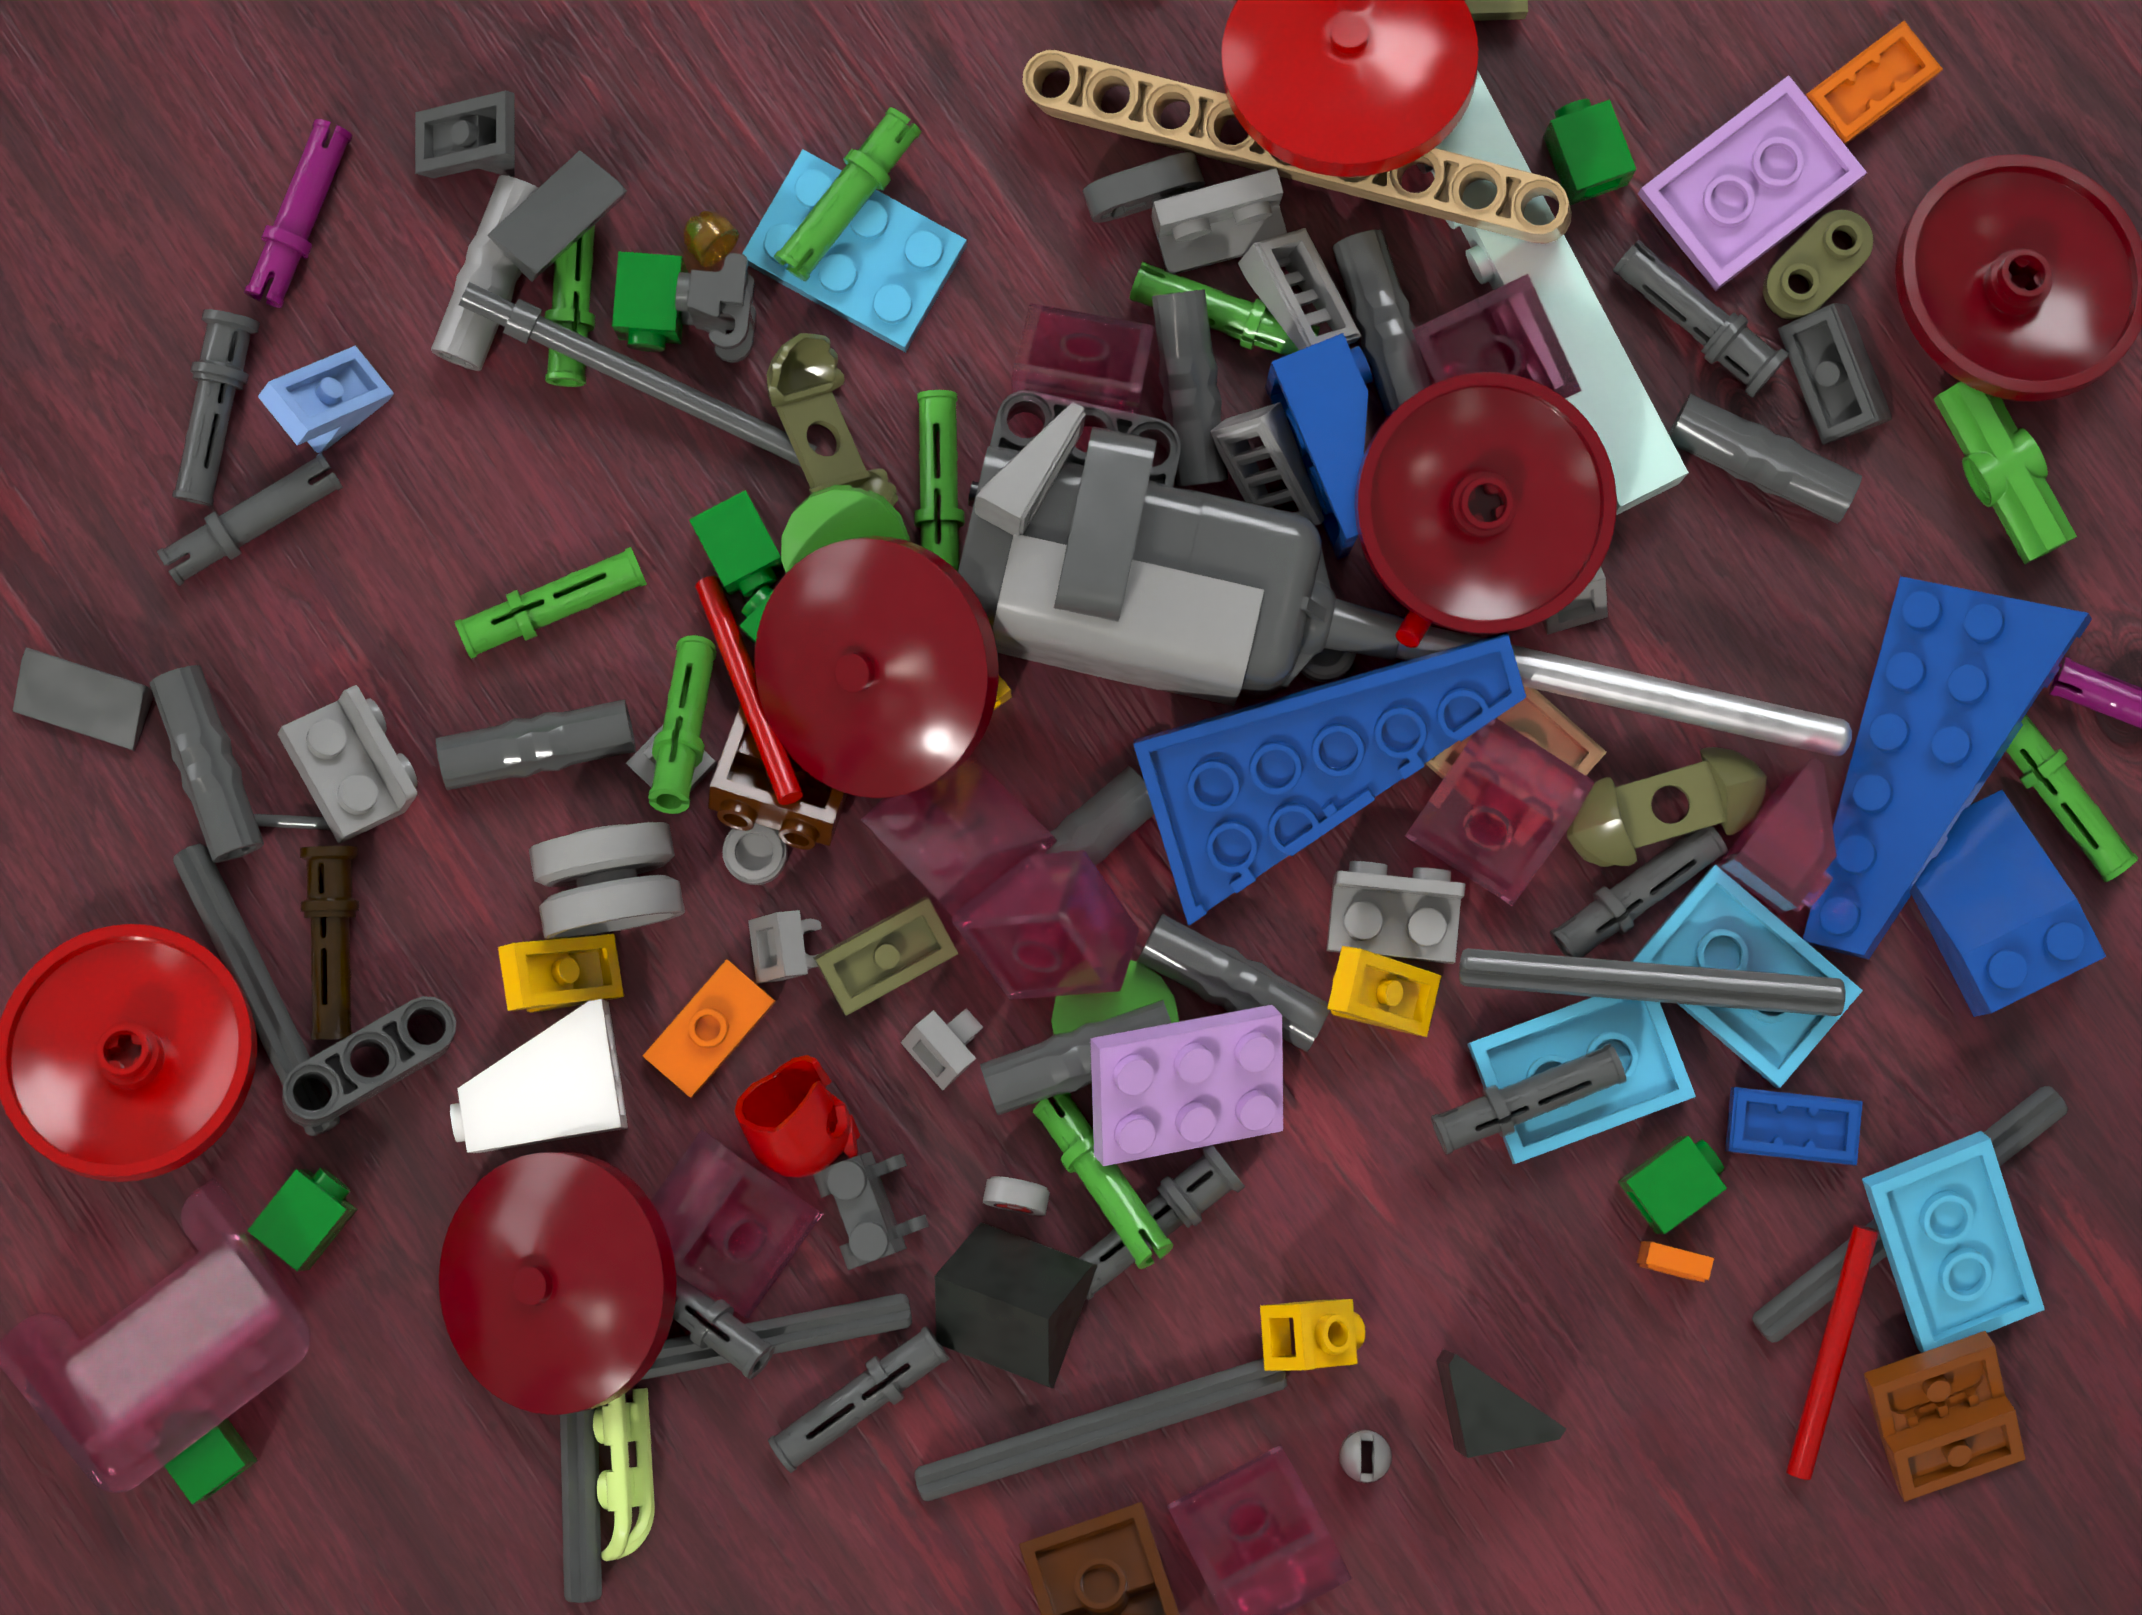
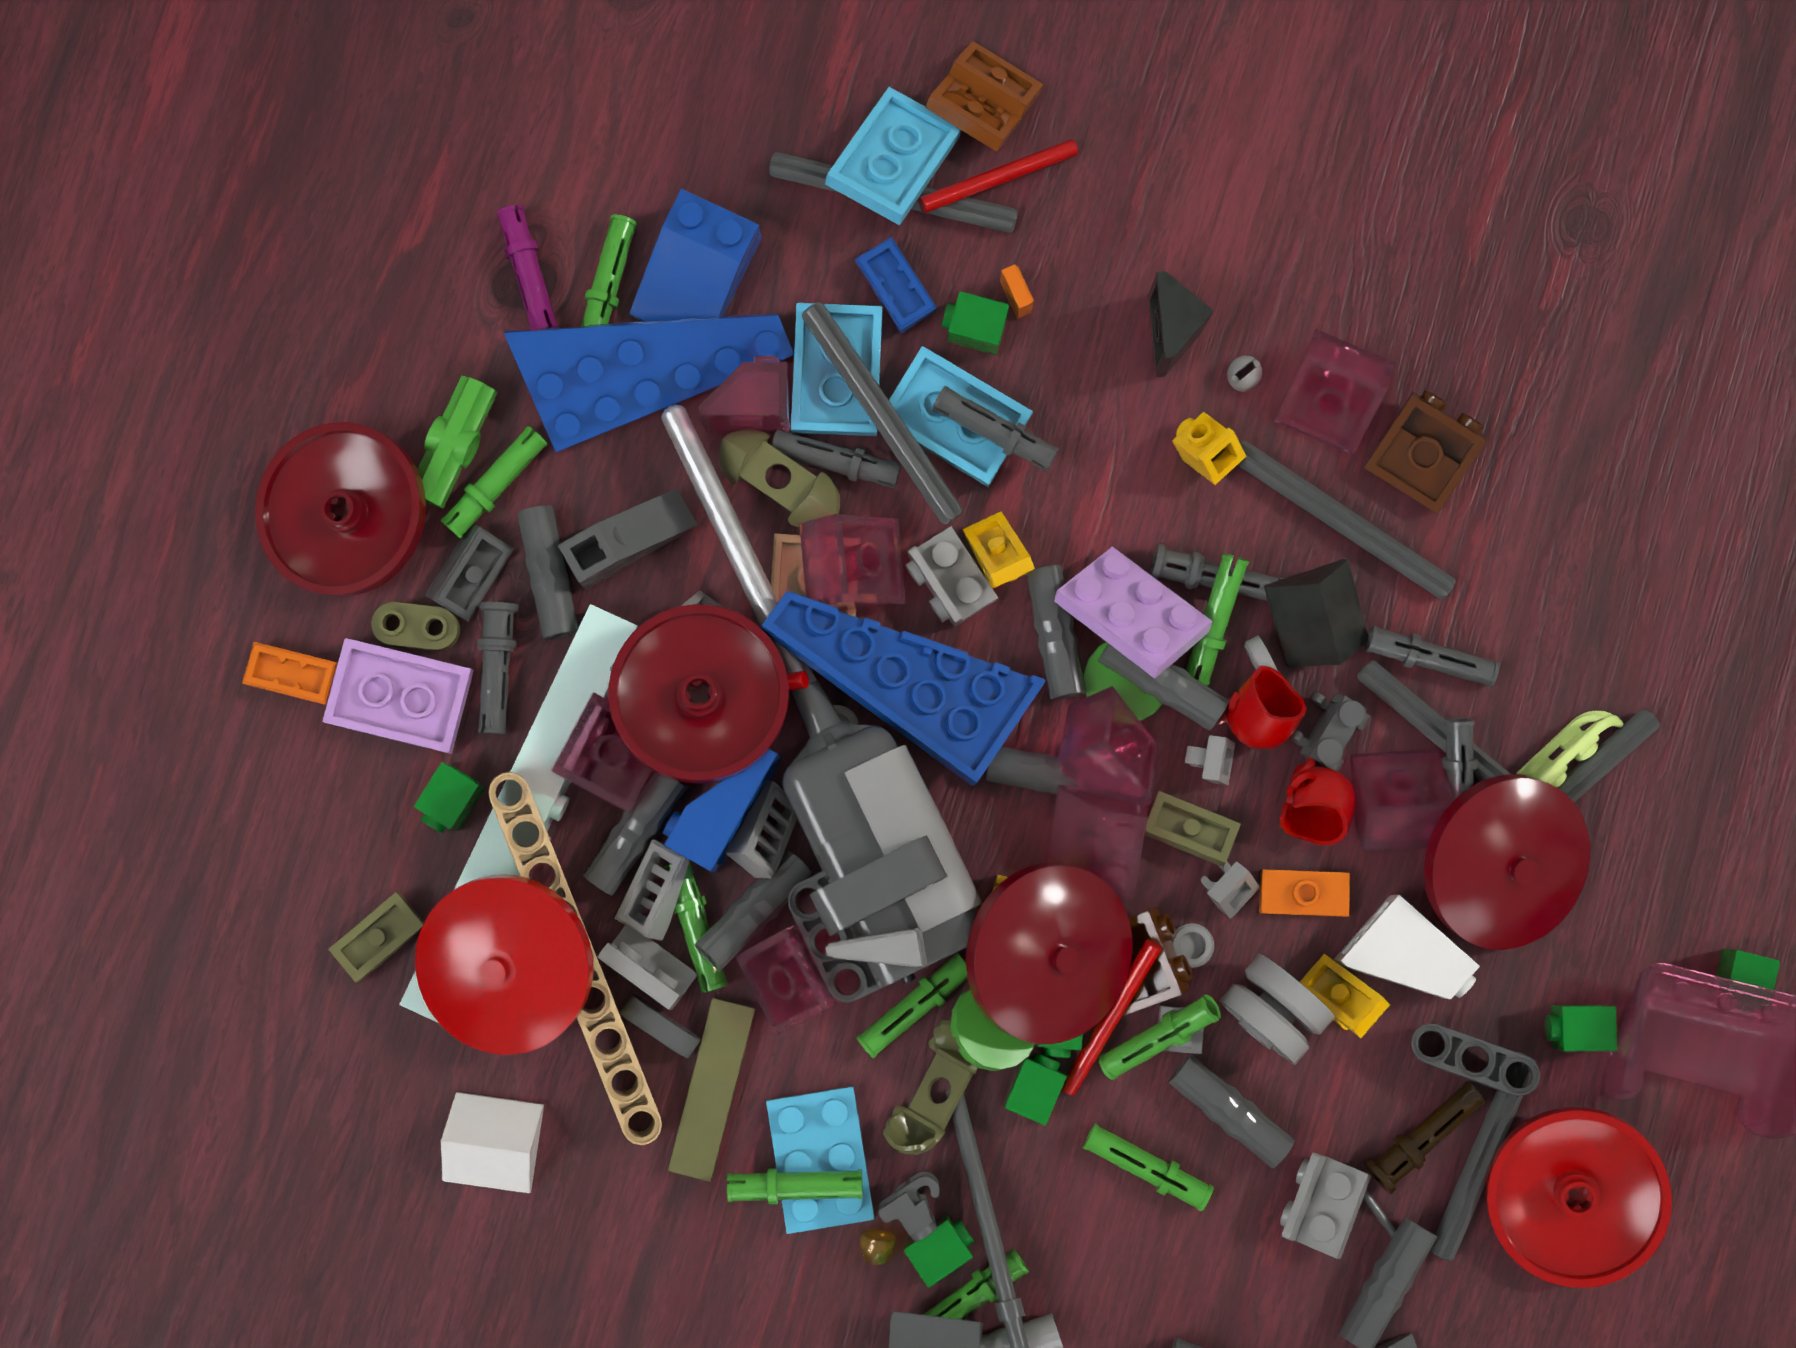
camera: 125 degrees left, 0 degrees up
(947, 1146) = (1266, 713): none -> red helmet
(1027, 192) = (711, 1089): none -> olive tile
(1734, 576) = (626, 537): none -> dark grey slope
(1919, 478) = (493, 482): none -> bright green pin

